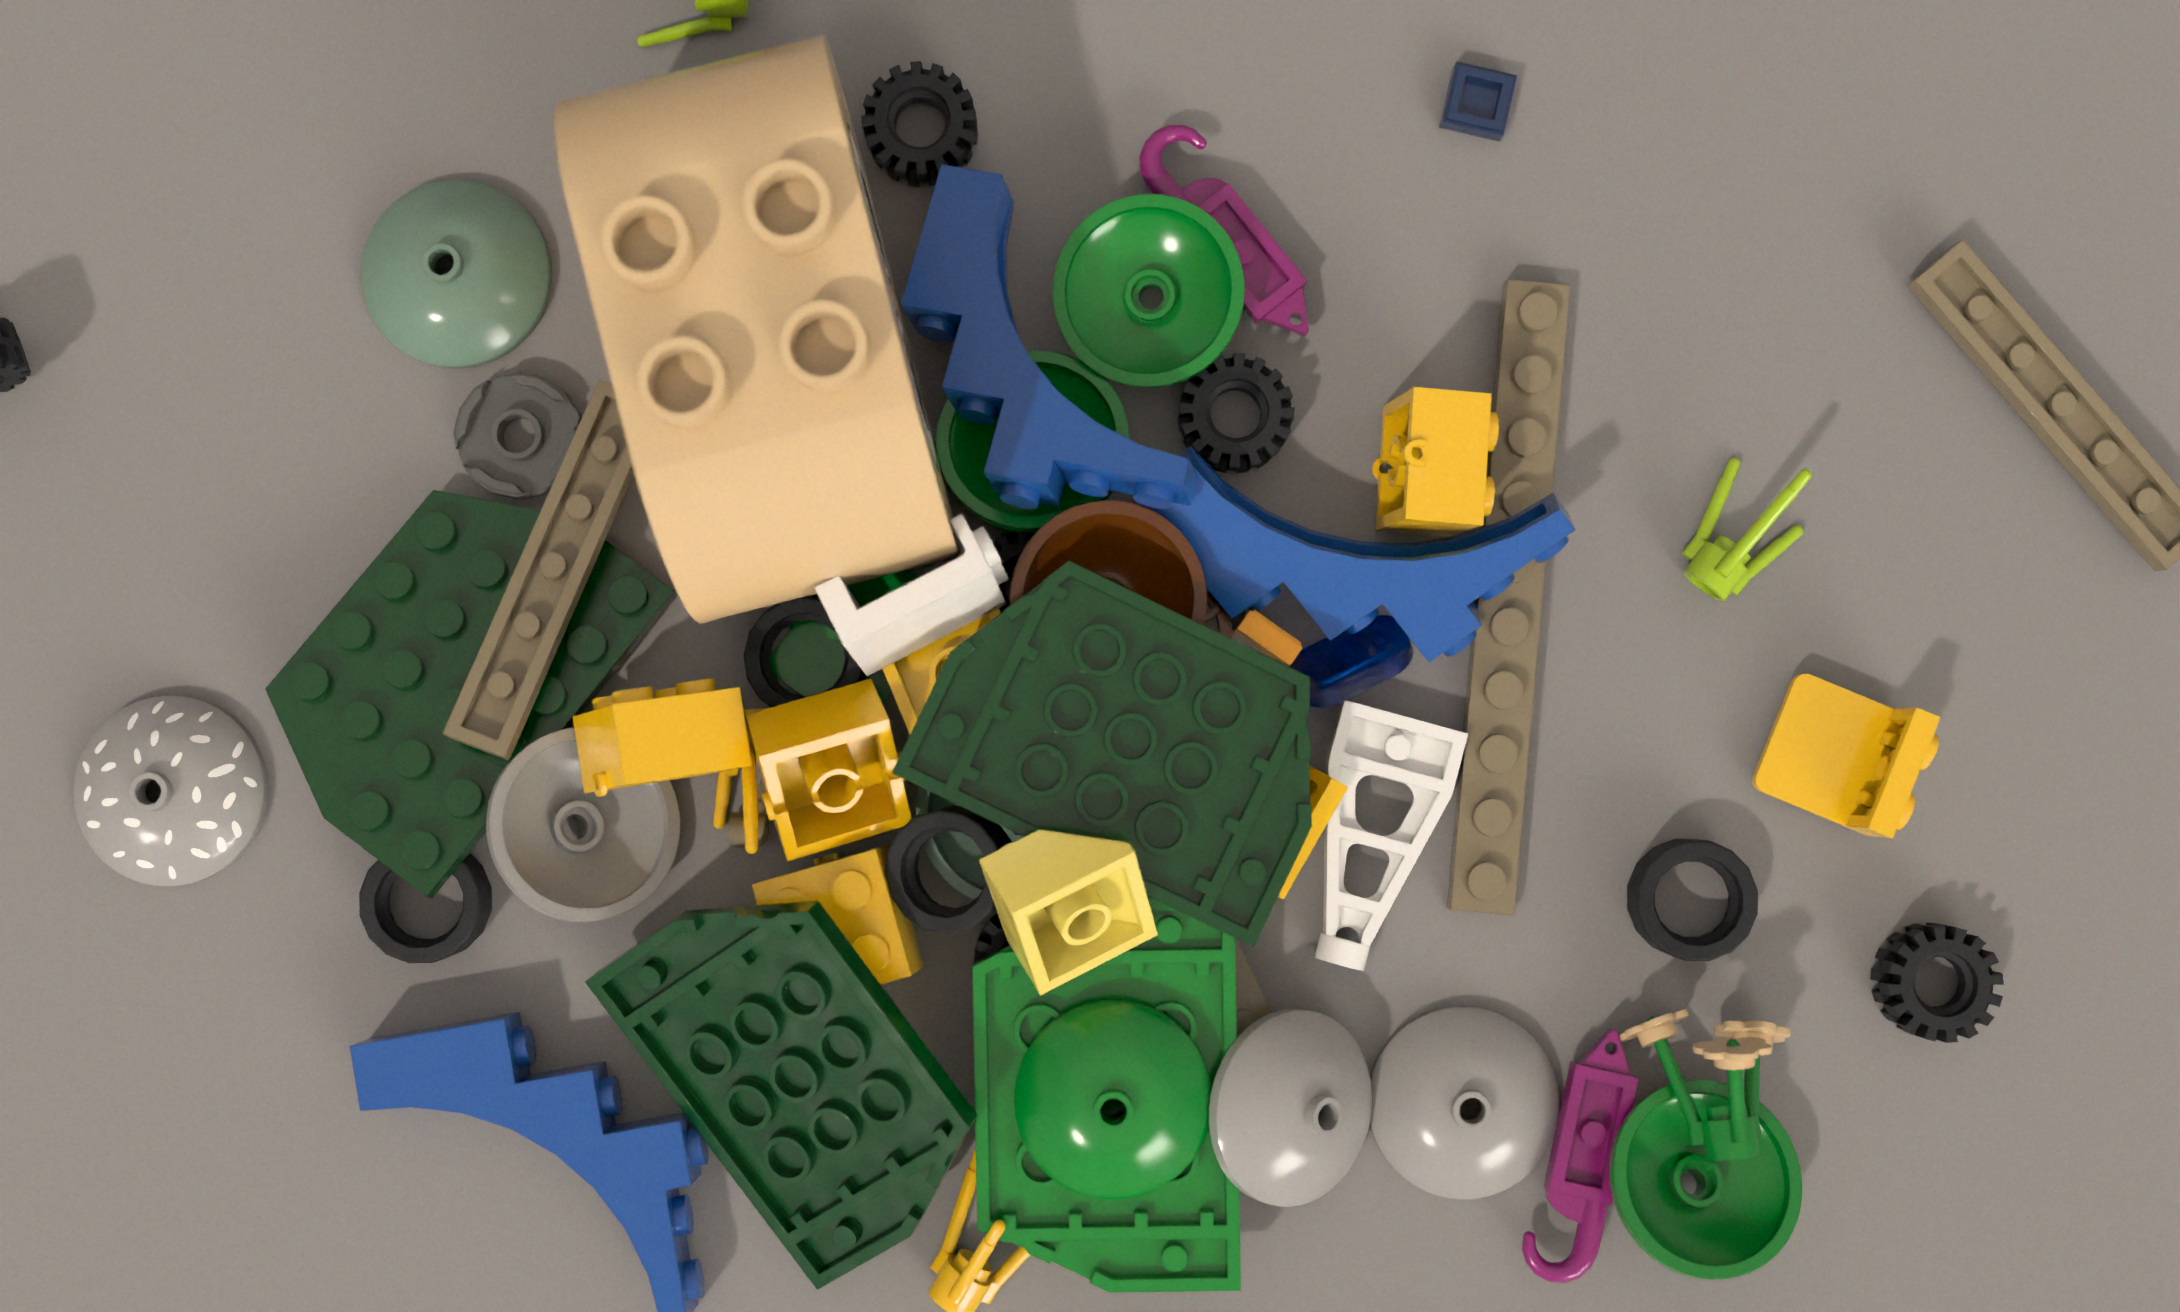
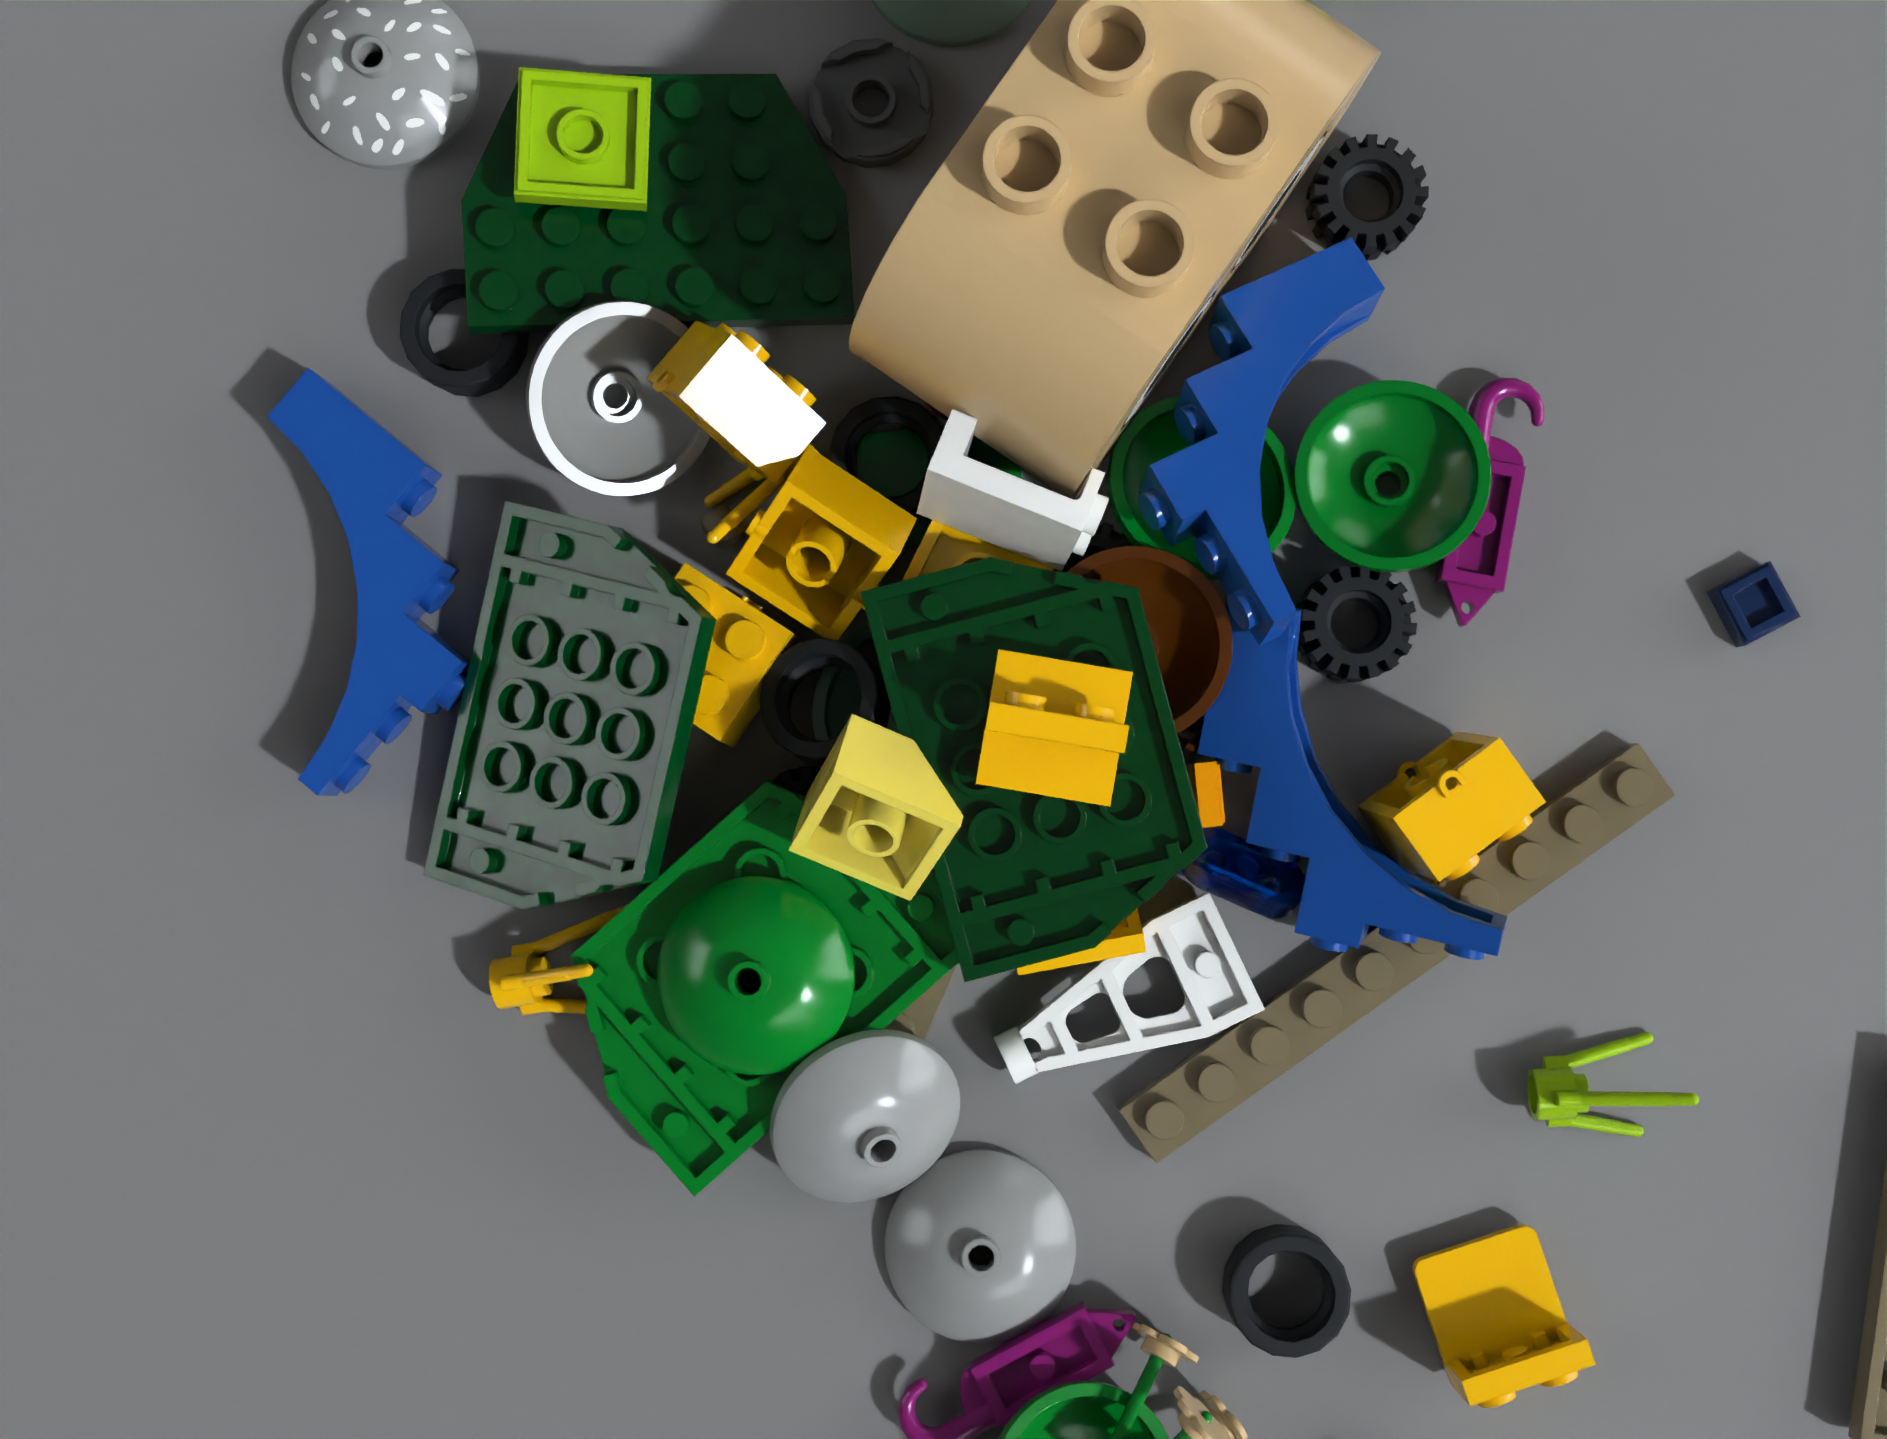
camera: 55 degrees right, 0 degrees up
(358, 685) = (582, 139): none -> lime plate
(546, 582) = (774, 215): dark tan plate -> none
(1120, 715) = (1054, 728): none -> yellow bracket

